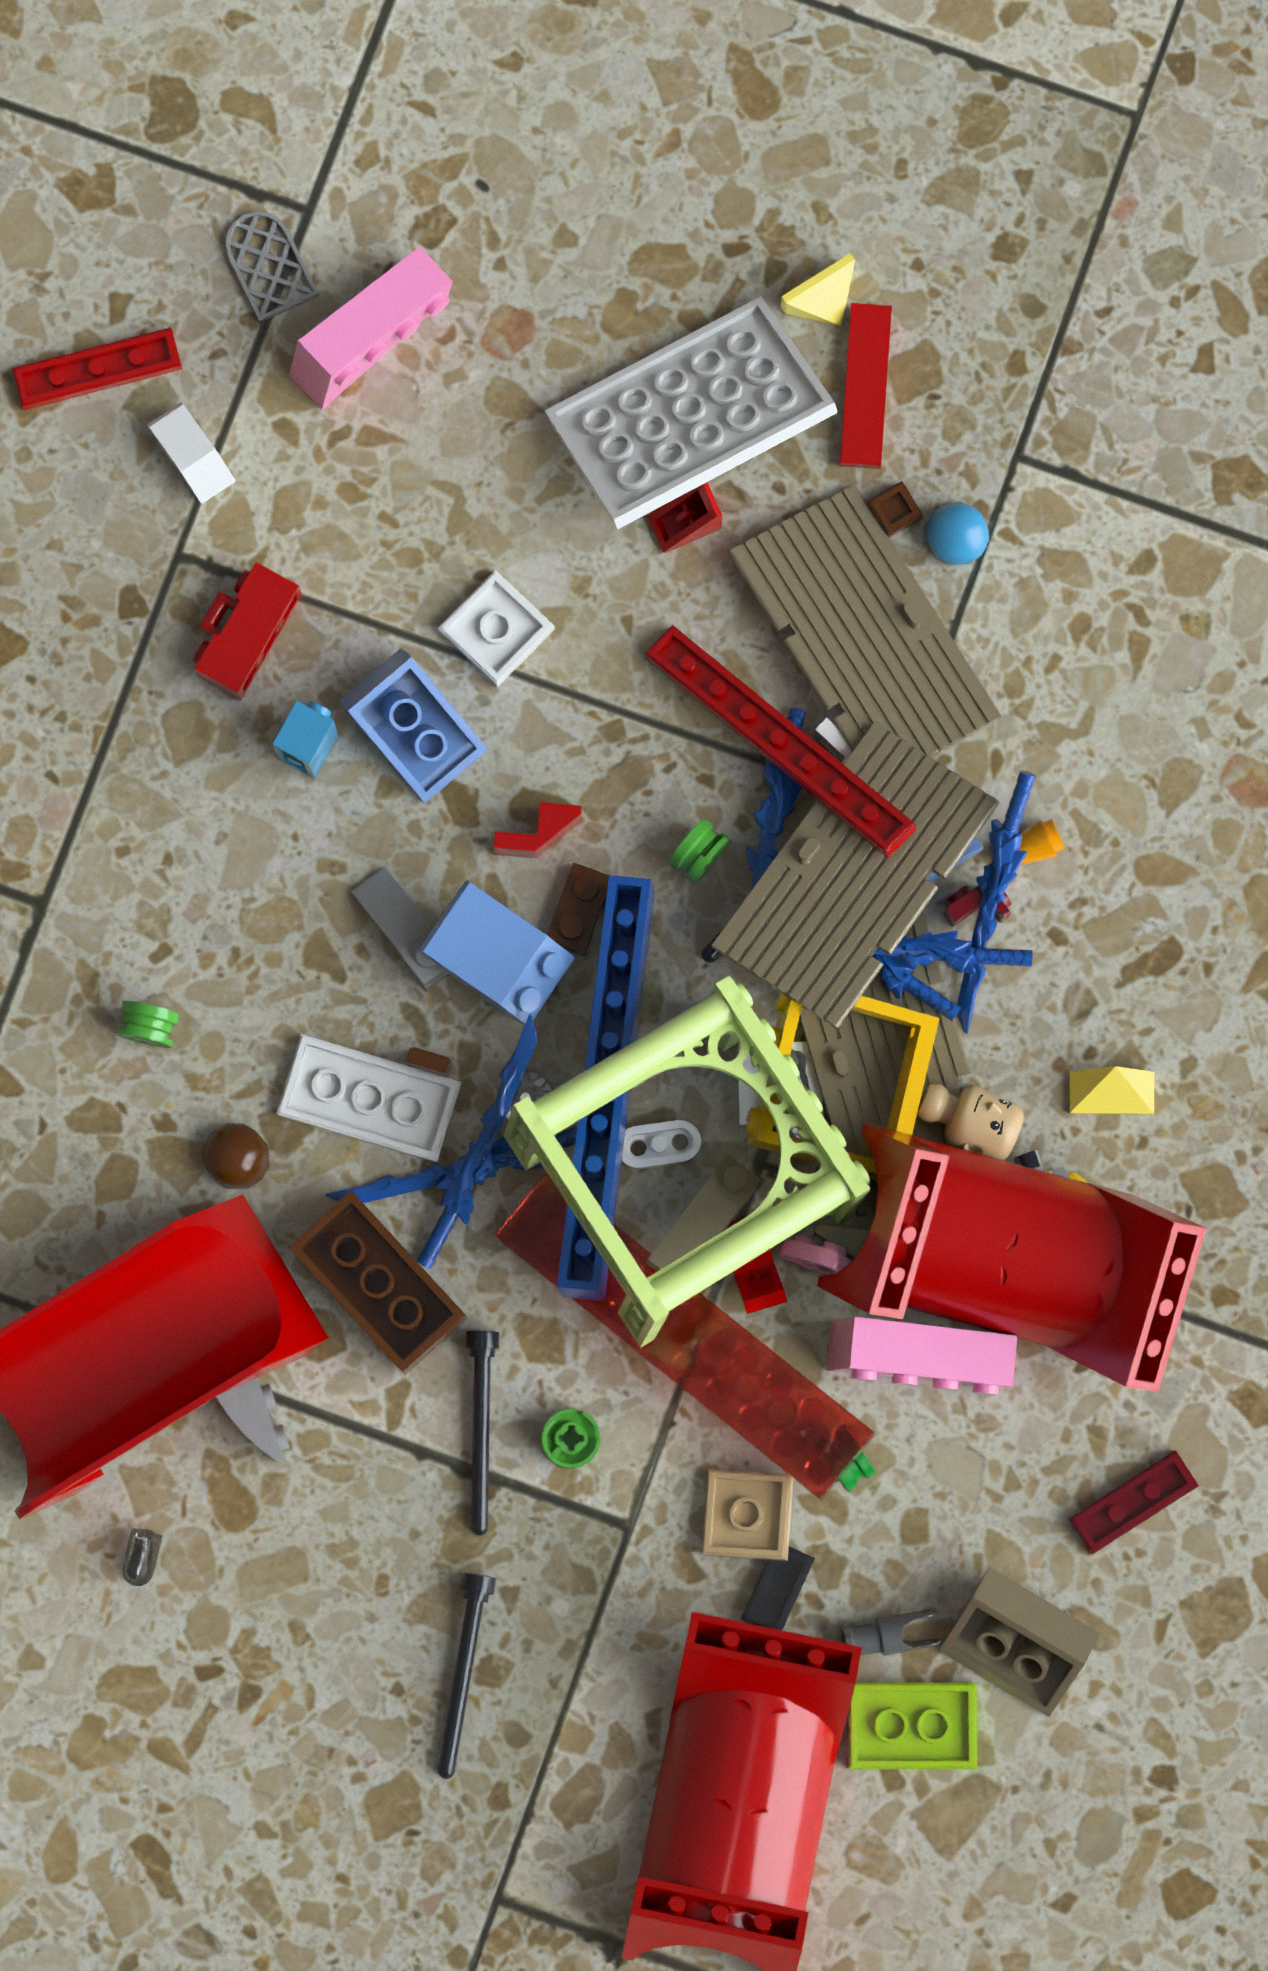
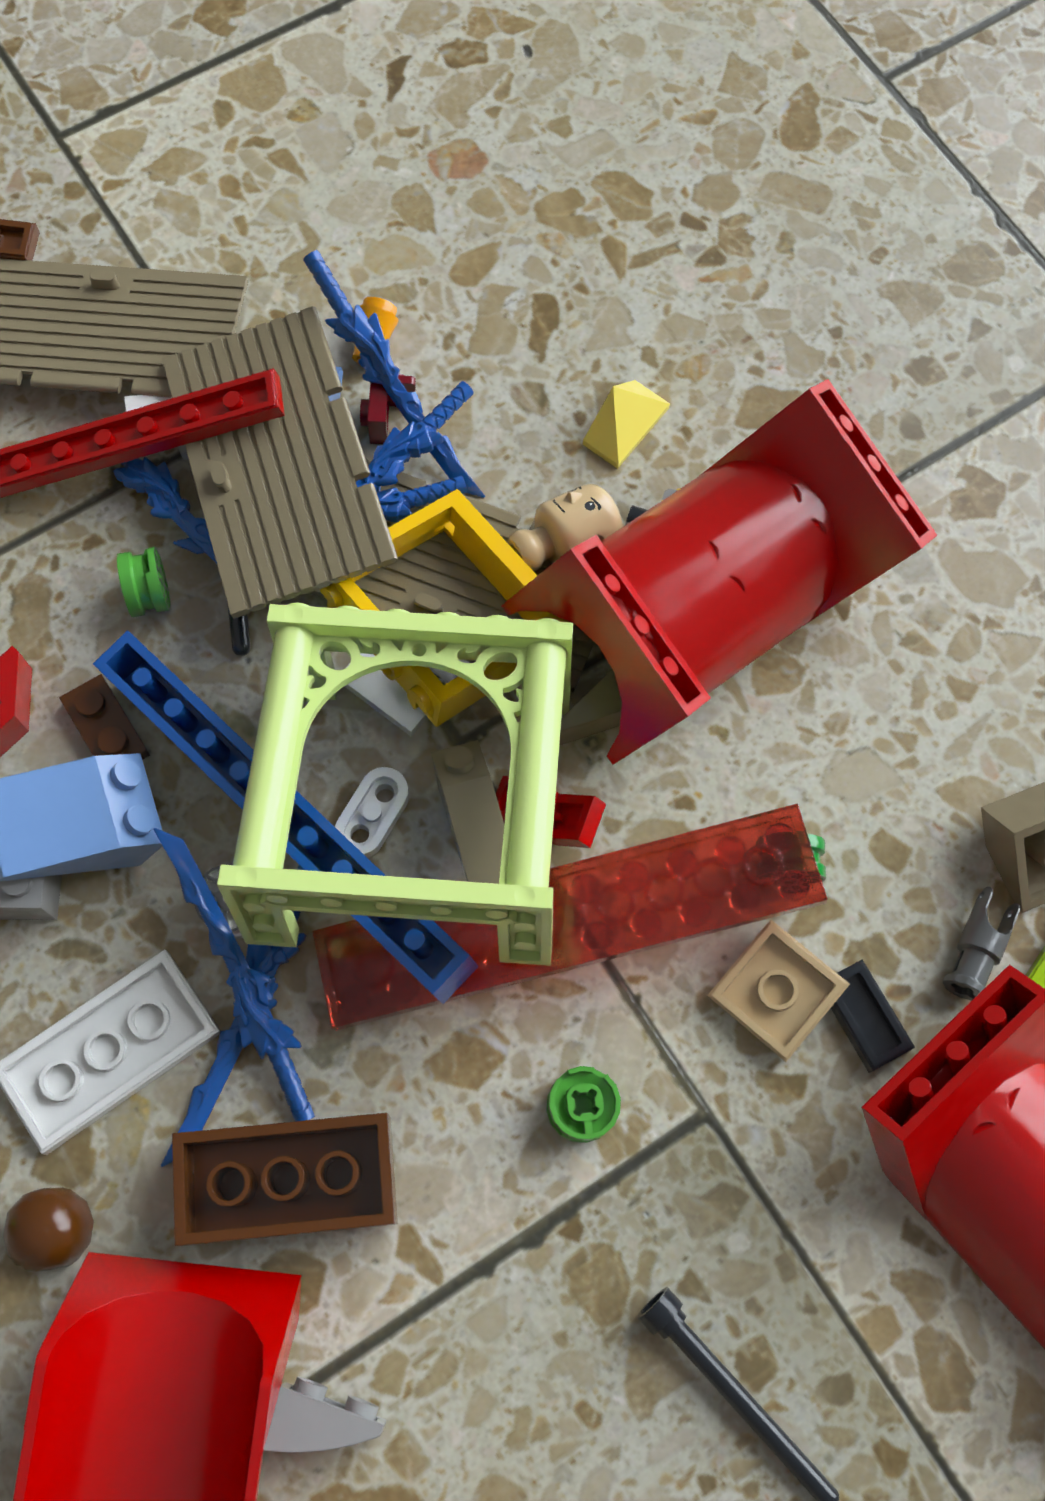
camera: 60 degrees left, 10 degrees down
(429, 1062) = (119, 963): reddish brown tile -> none
(482, 1348) = (431, 1125): black piece -> none
(809, 1255) = (587, 746): bright pink plate -> none
(922, 1353) = (738, 726): bright pink wedge -> none
(957, 533) = (73, 210): dark azure hair -> none
(1133, 1502) = (996, 653): dark red tile -> none

